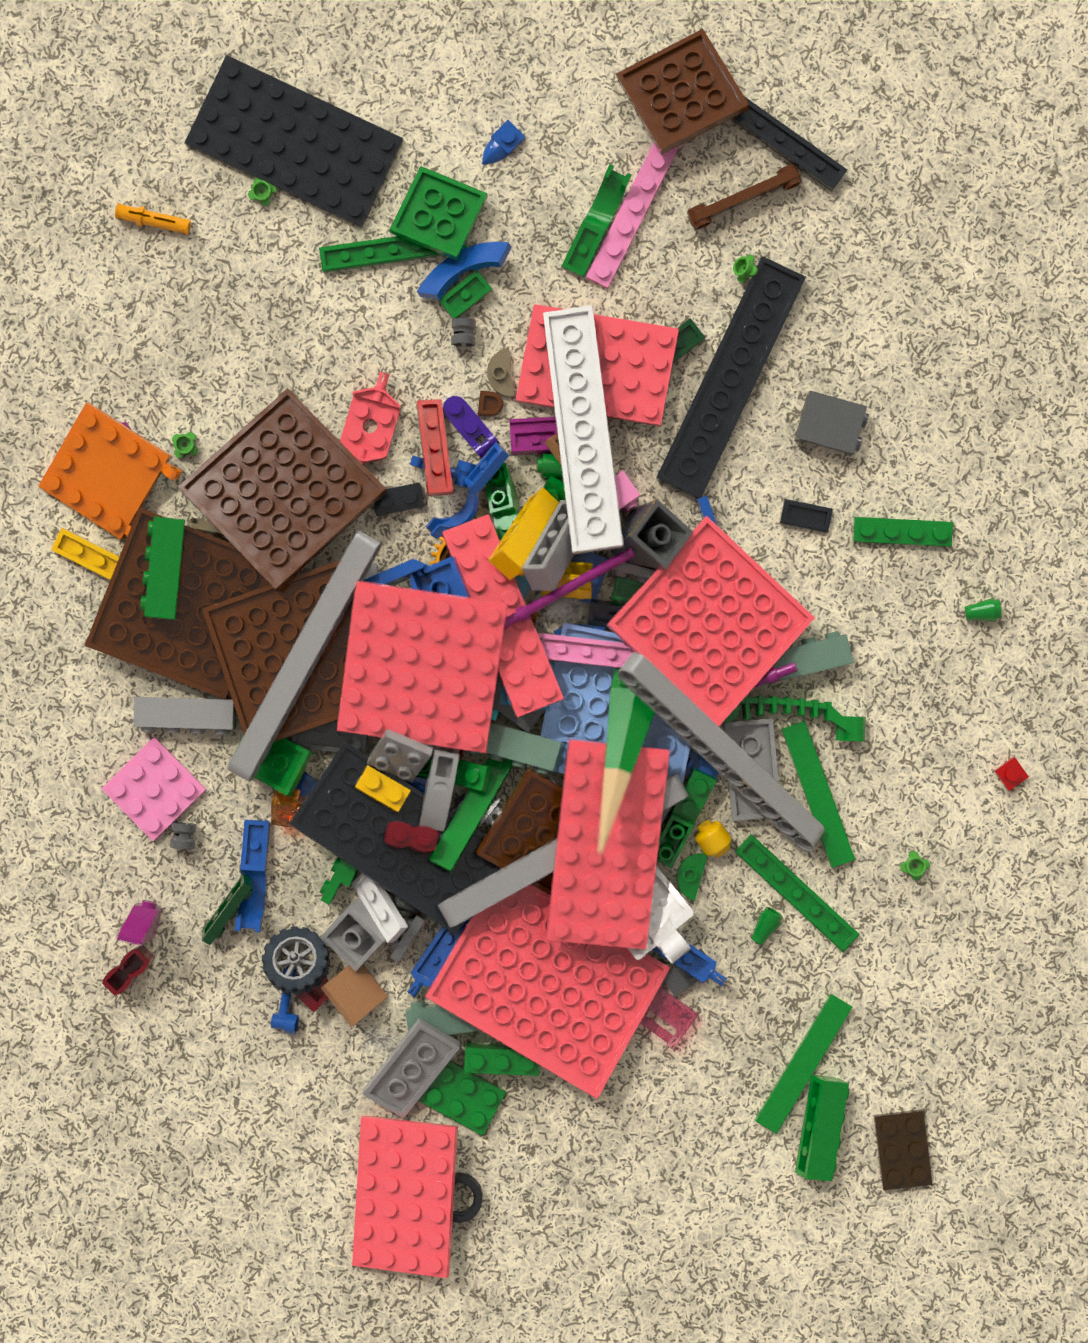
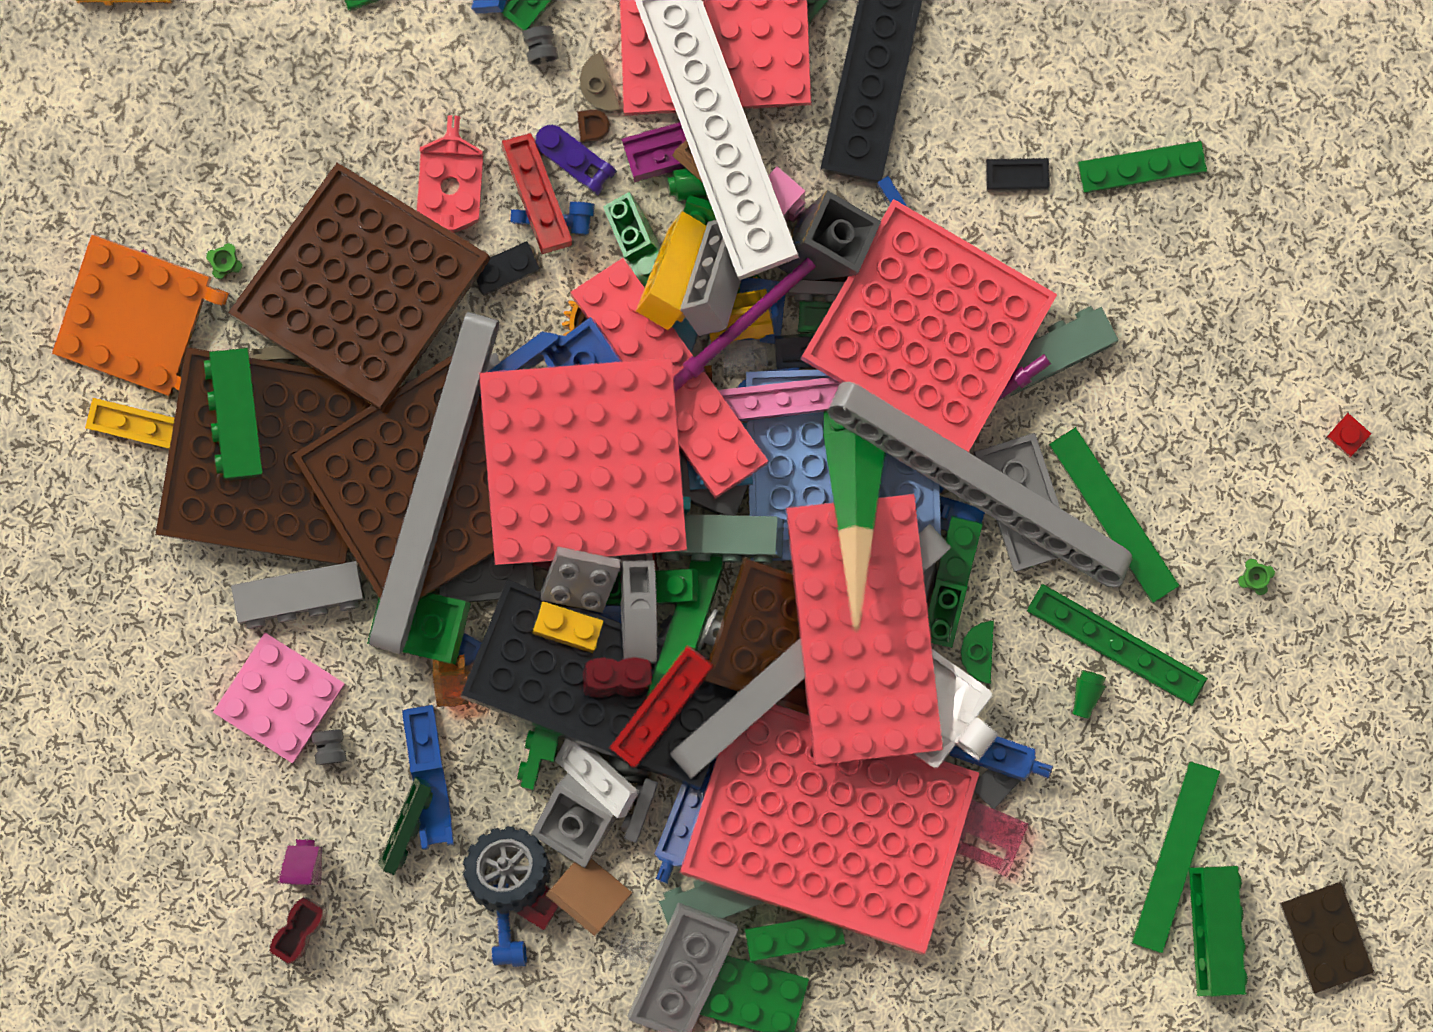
camera: 15 degrees left, 5 degrees down
(439, 869) = (662, 706): none -> red plate
(475, 482) = (596, 225): blue piece -> none
(713, 838) = (995, 599): yellow head -> none
(831, 423) = (1022, 53): dark grey panel -> none
(847, 727) = (1131, 423): green piece -> none
(985, 610) = (1266, 241): green cone -> none

